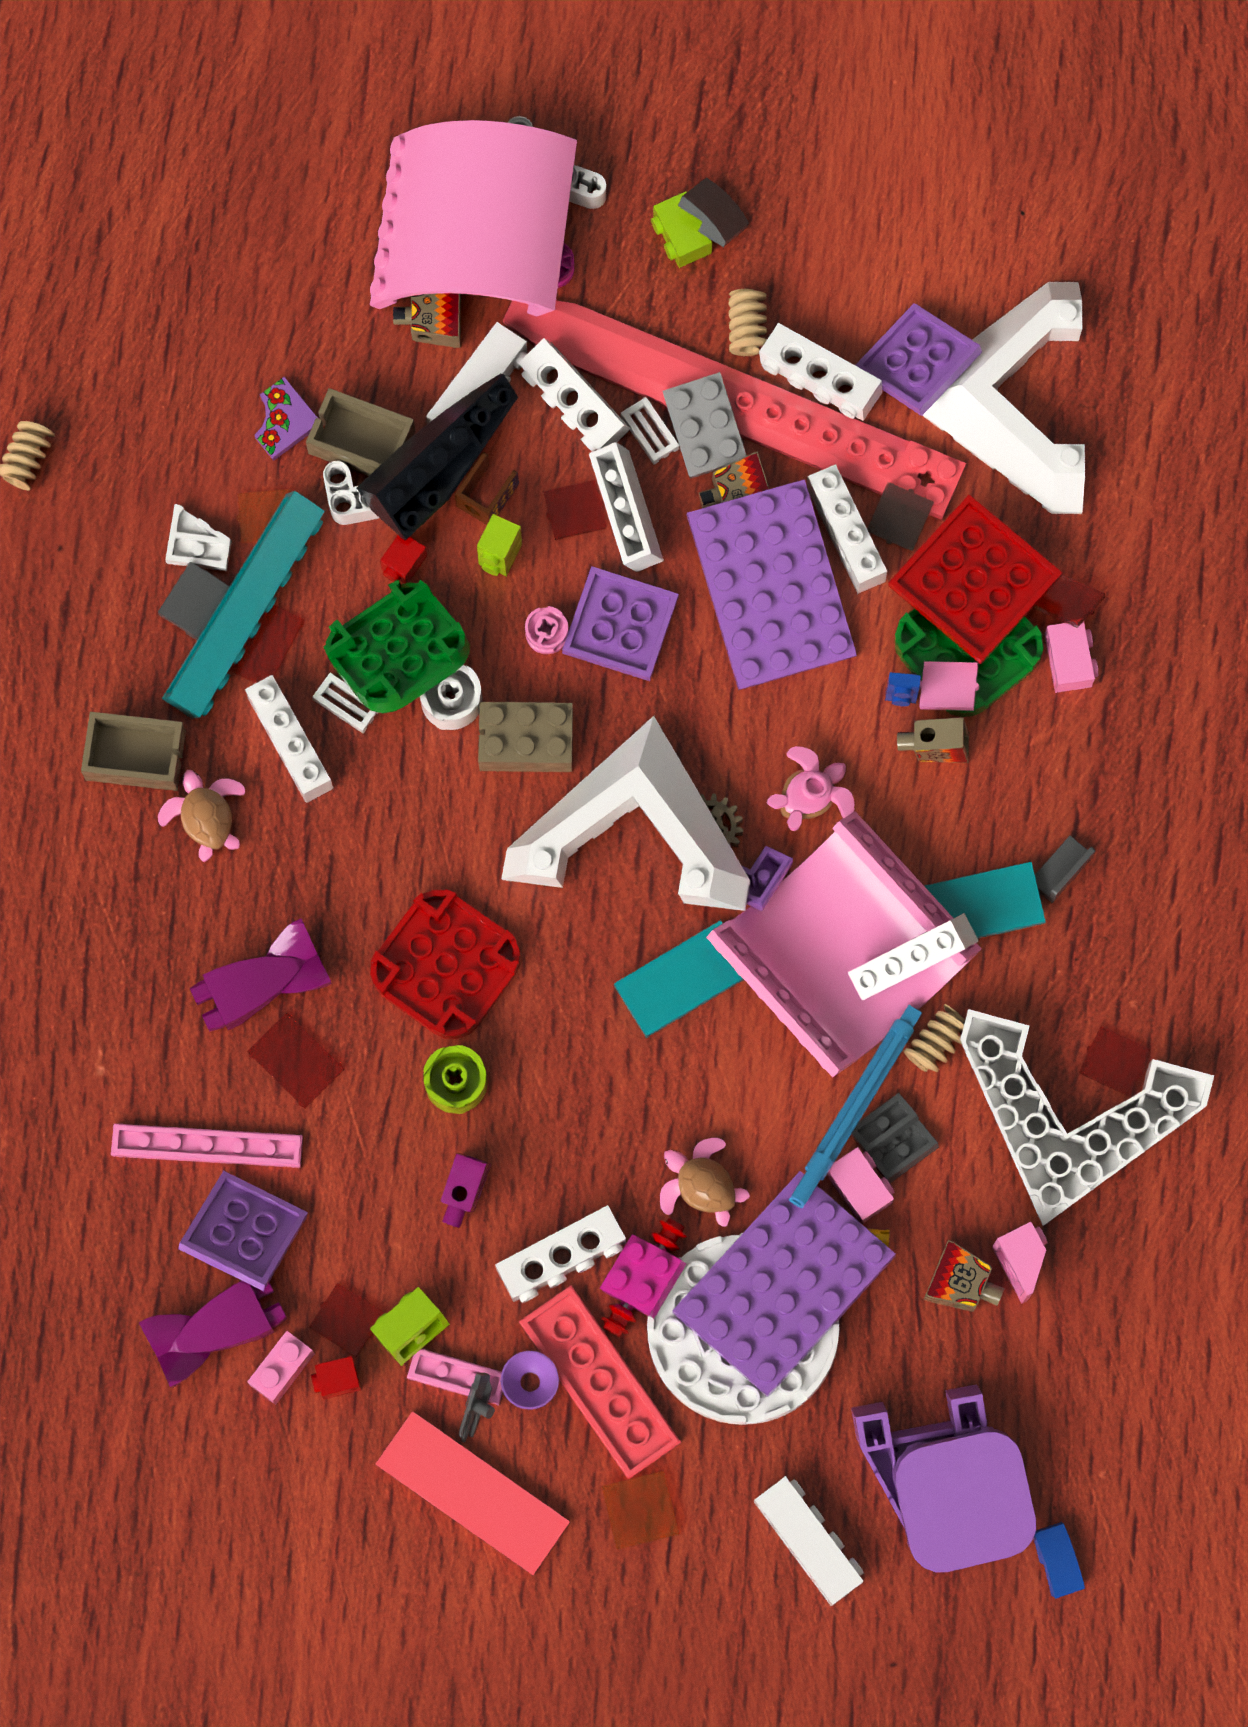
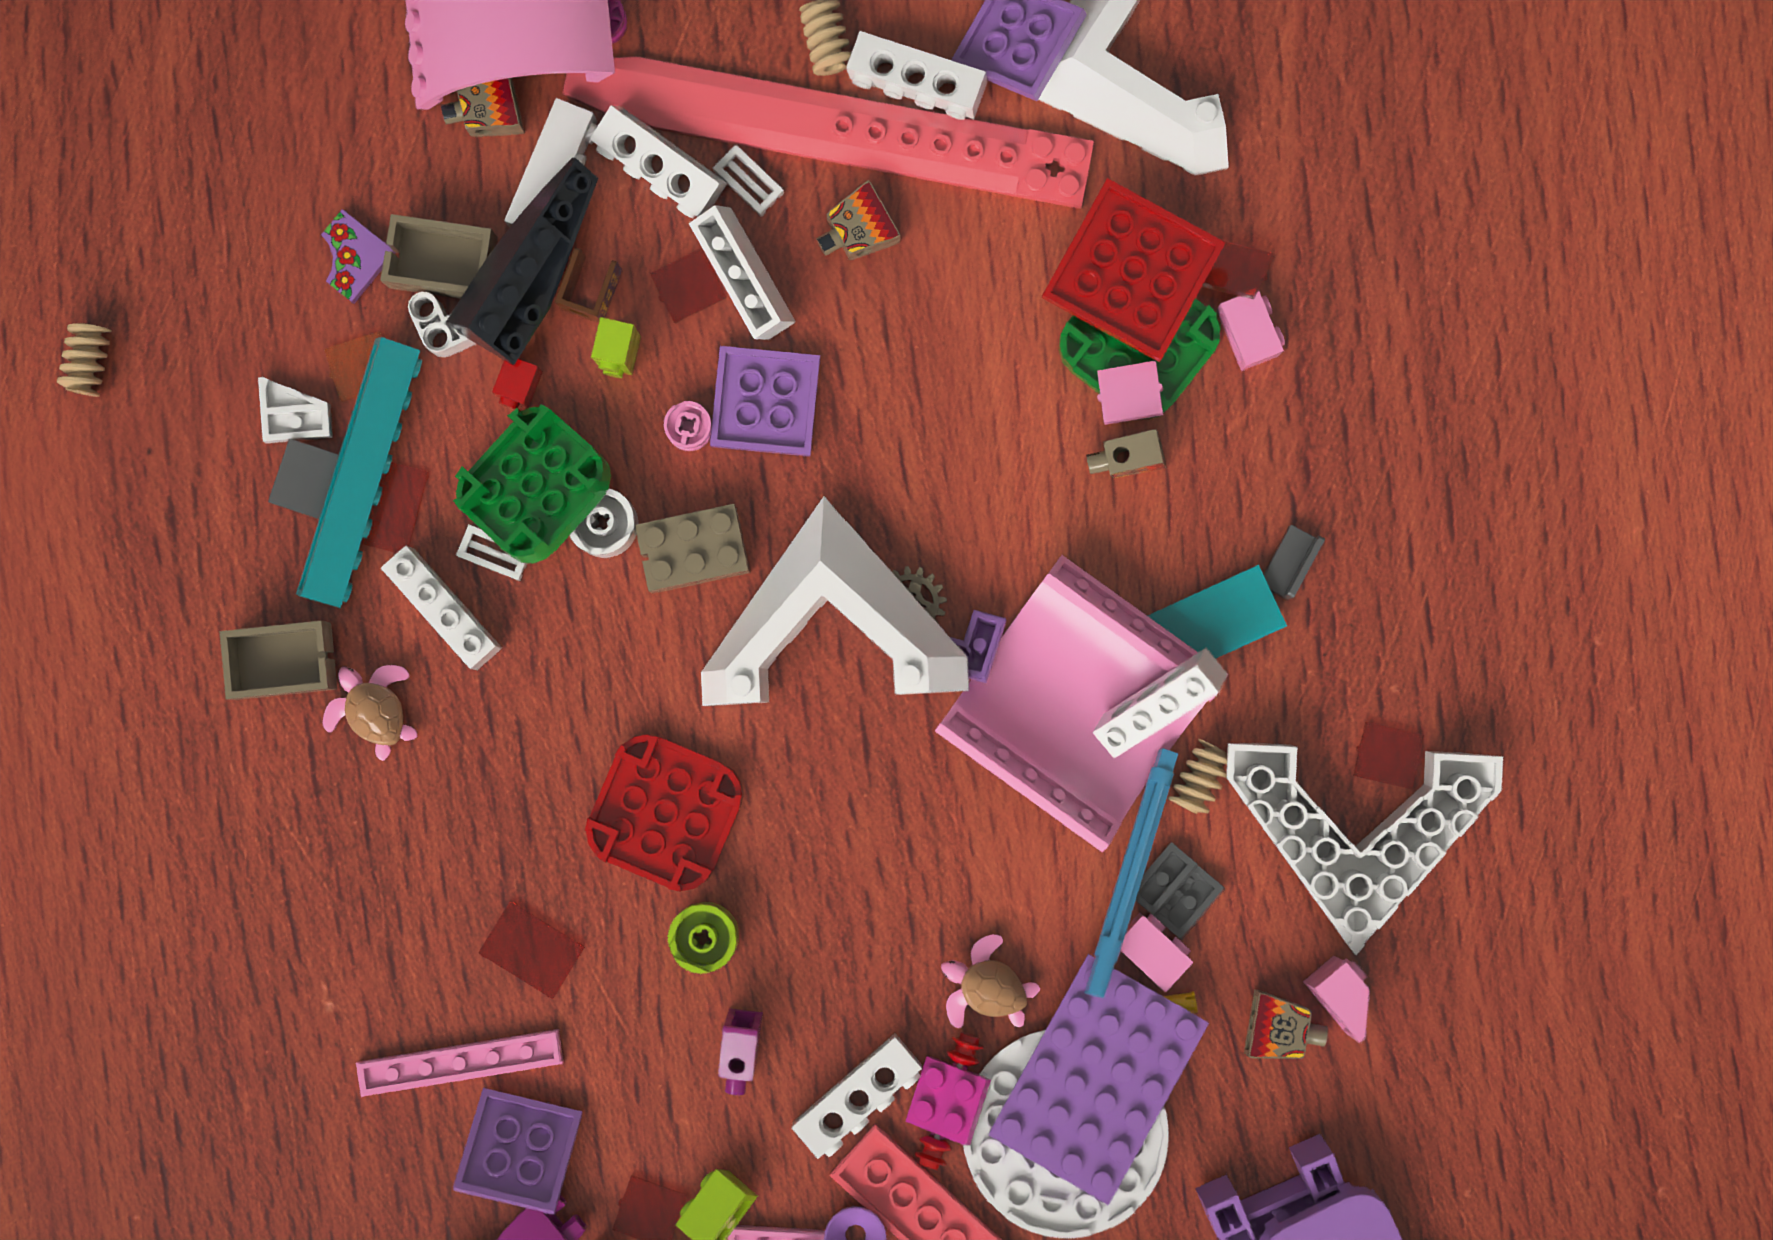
camera: 10 degrees left, 10 degrees up
(253, 983) = (456, 891): magenta hips -> none
(676, 983) = (911, 777): teal tile -> none
(704, 425) = (805, 162): light grey plate -> none
(771, 584) = (916, 322): medium lavender plate -> none
(810, 791) = (1008, 539): bright pink animal -> none
(846, 529) = (982, 243): white brick -> none
(900, 516) = (1036, 215): clear smoke piece -> none
(902, 688) = (1082, 408): blue plate -> none

